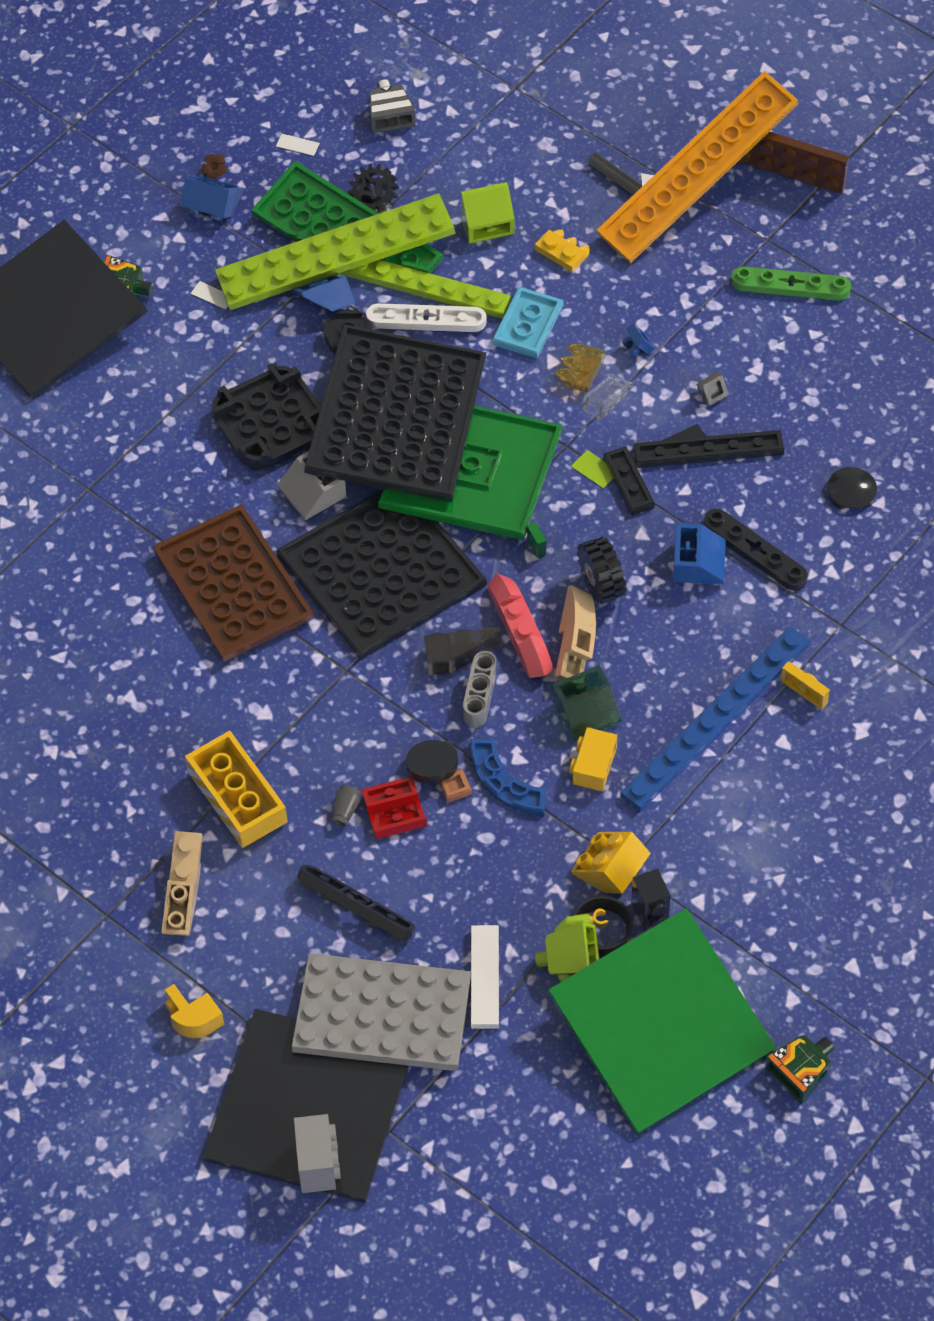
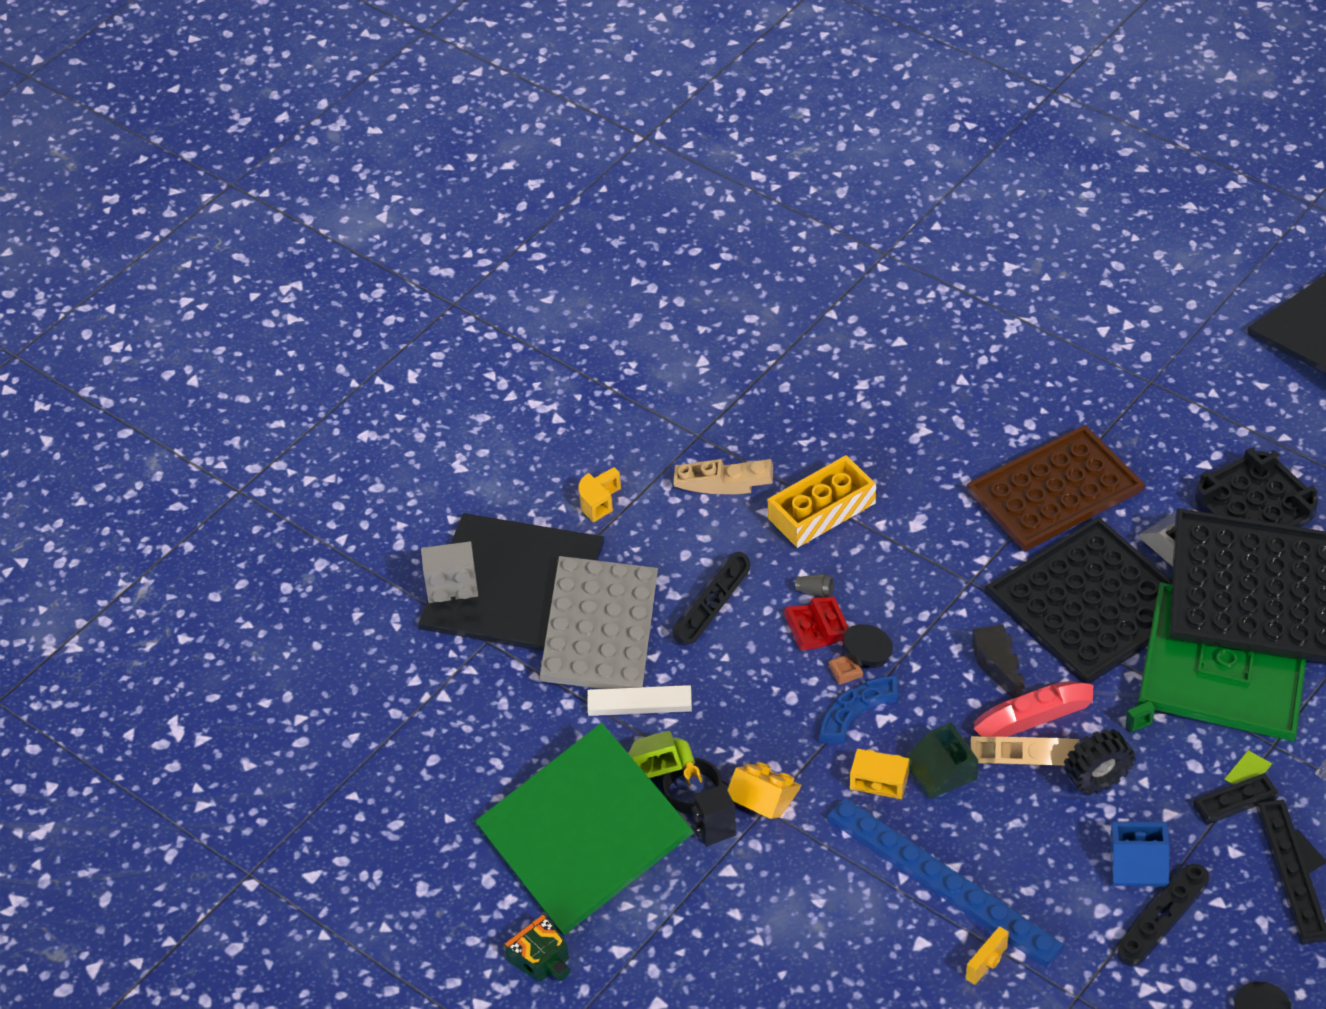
camera: 90 degrees right, 10 degrees down
(477, 699) = (952, 678): light grey beam -> none

